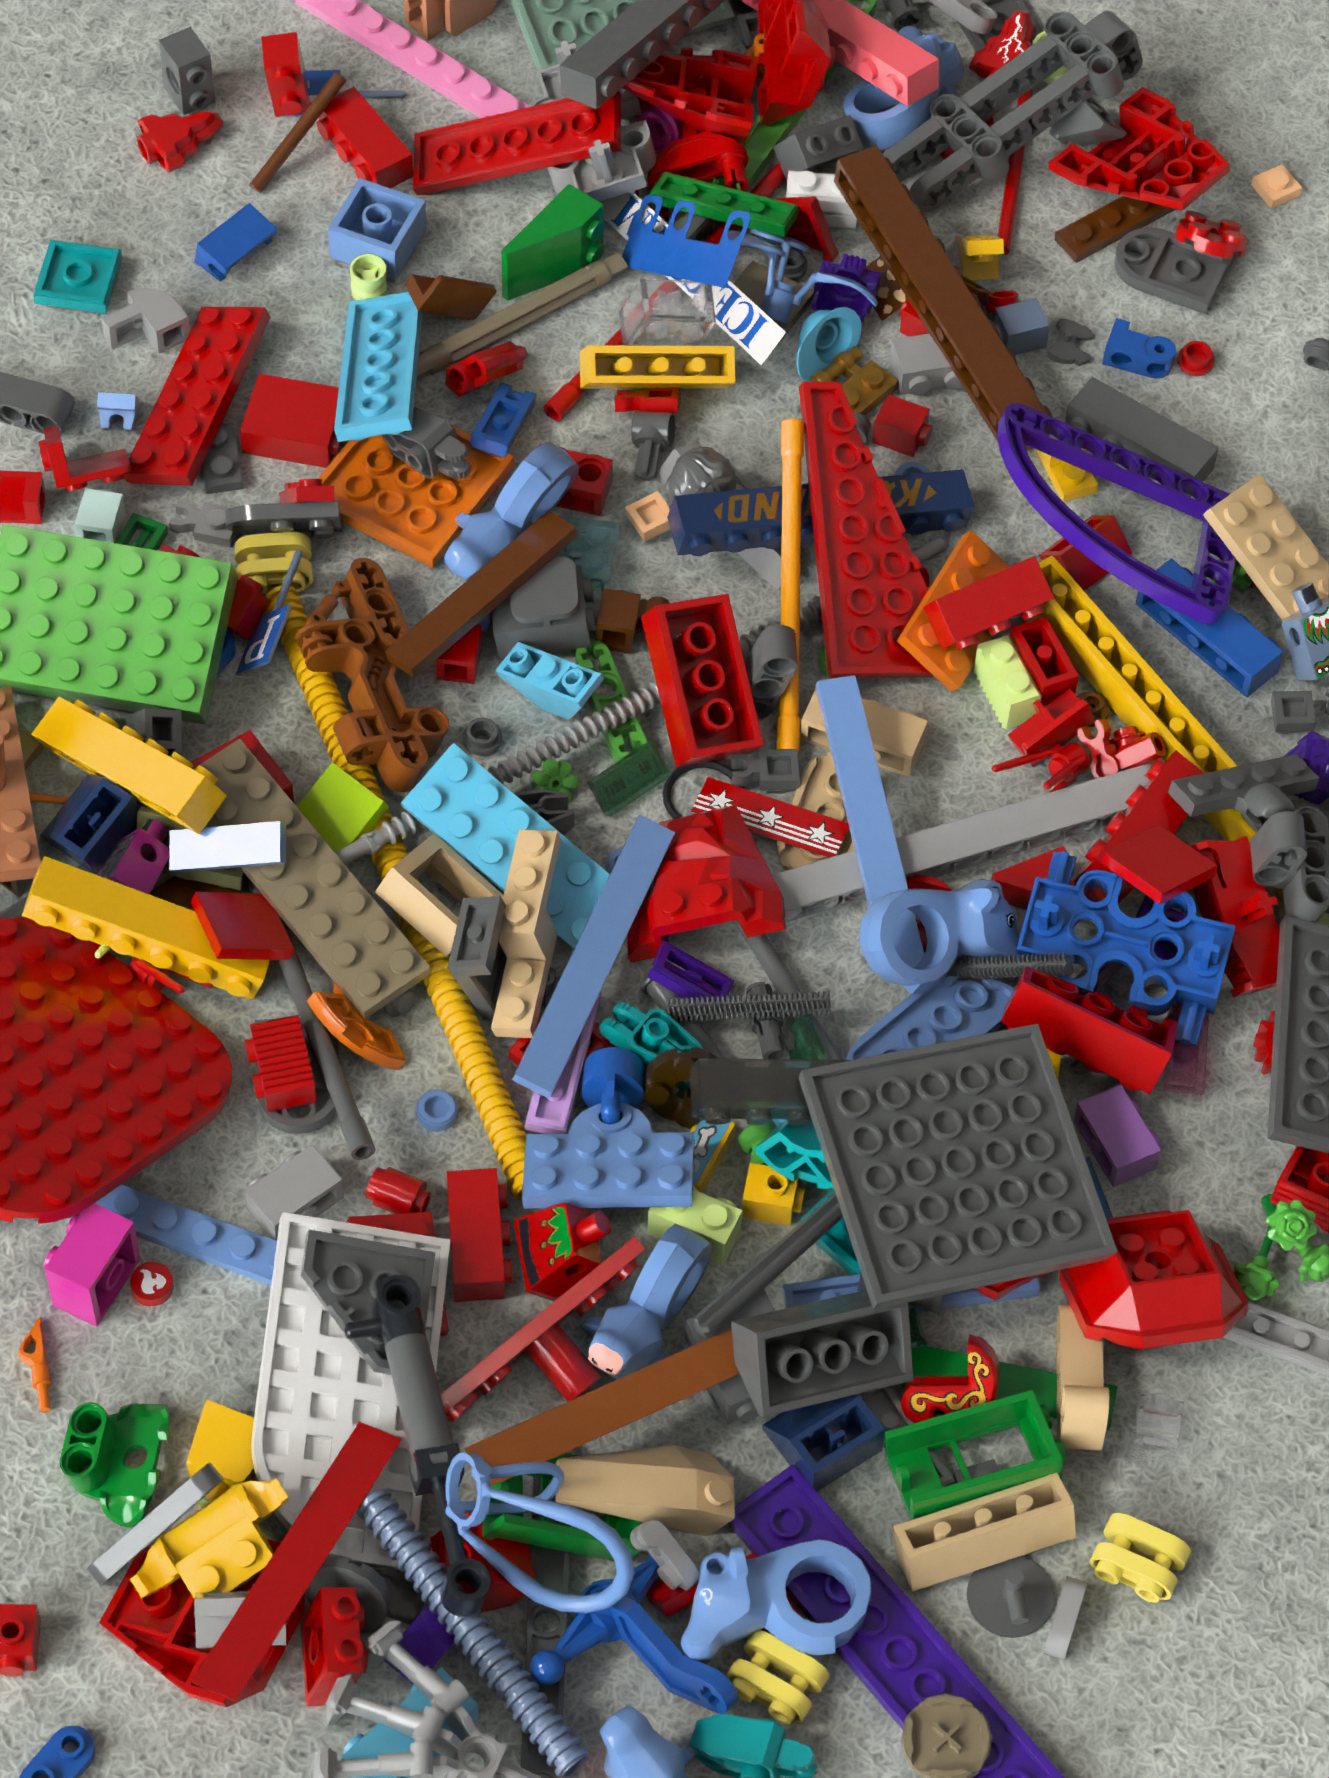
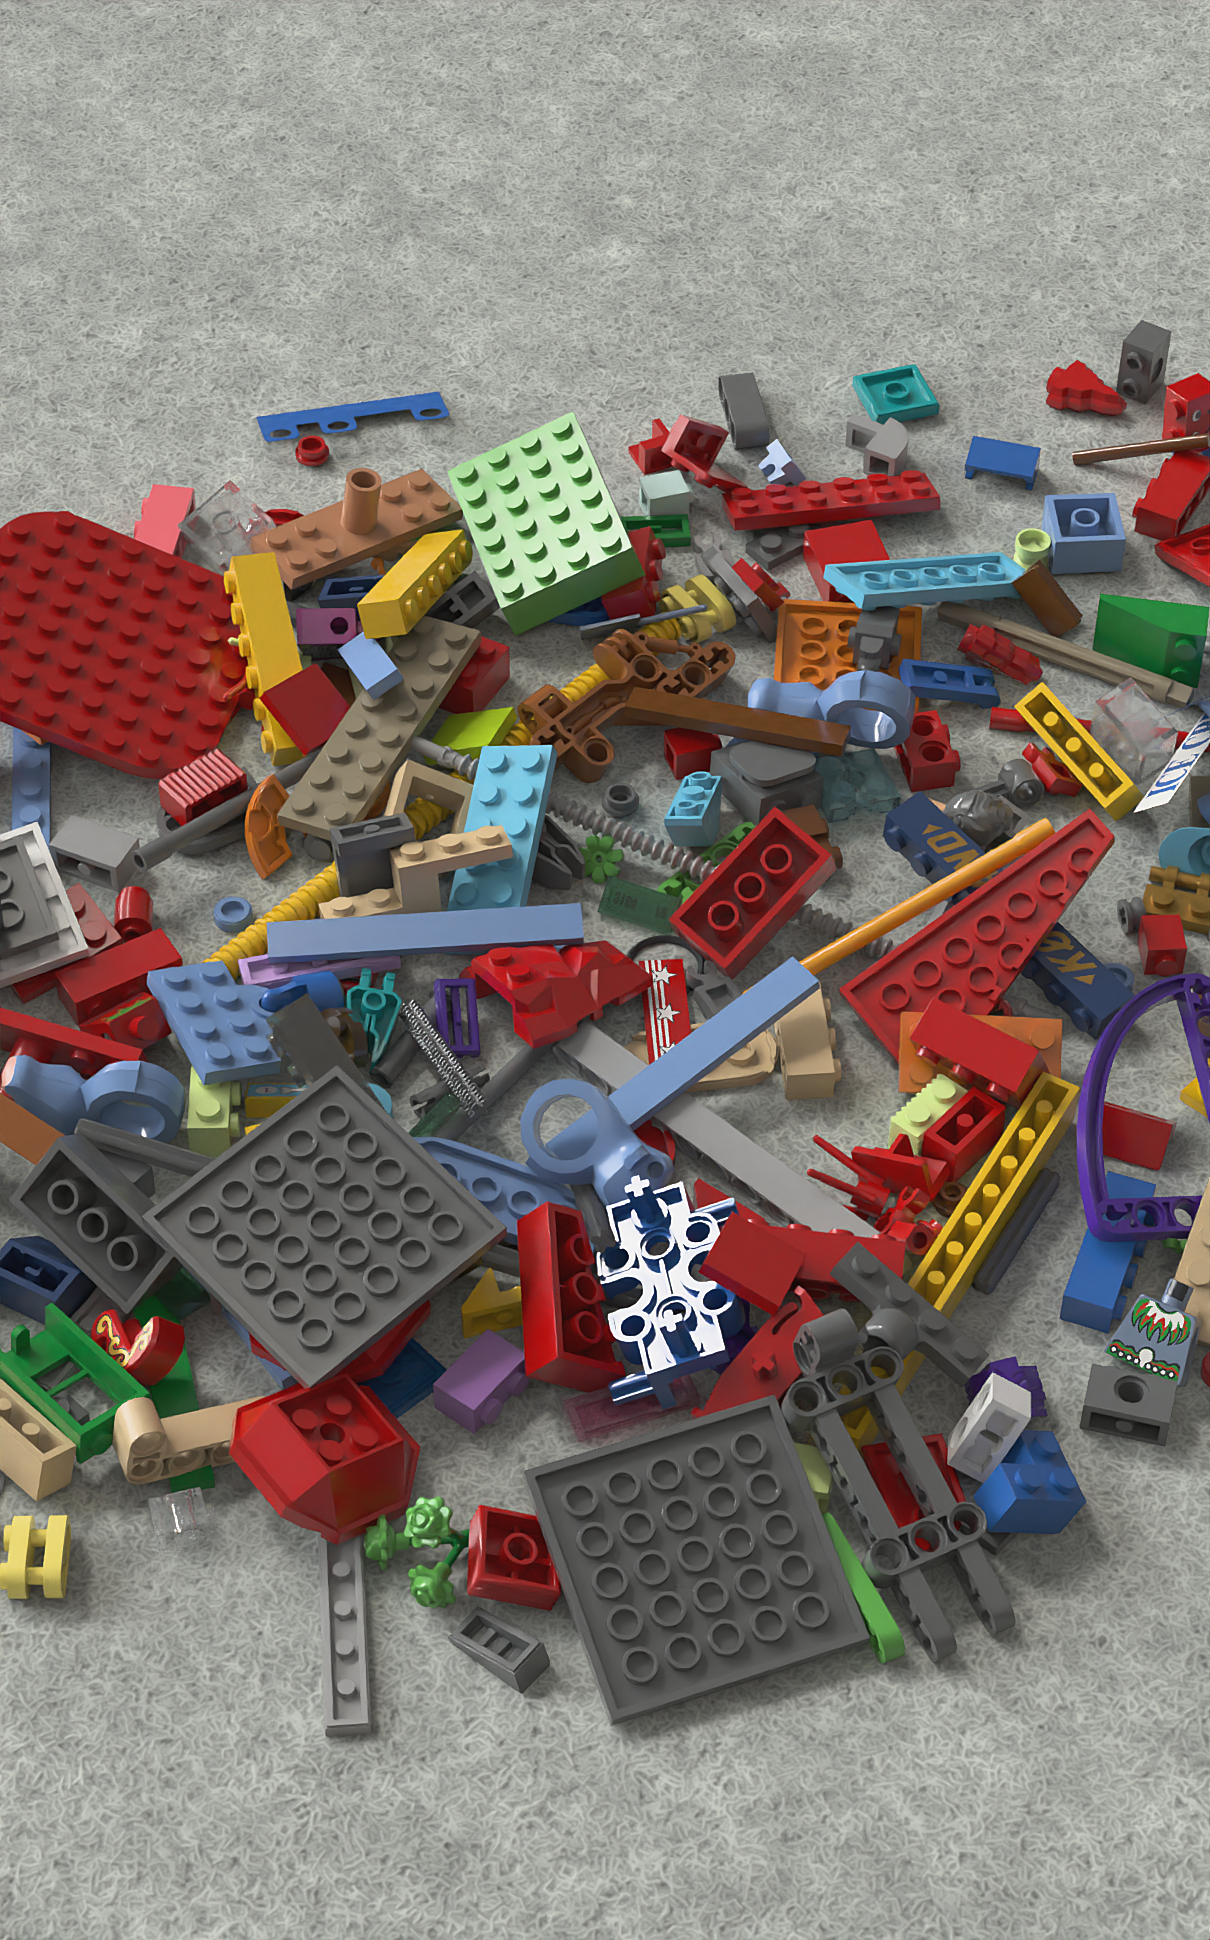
camera: 65 degrees right, 10 degrees down
(771, 667) = (796, 931): dark grey beam -> none
(1293, 711) = (1061, 1354): dark grey plate -> none

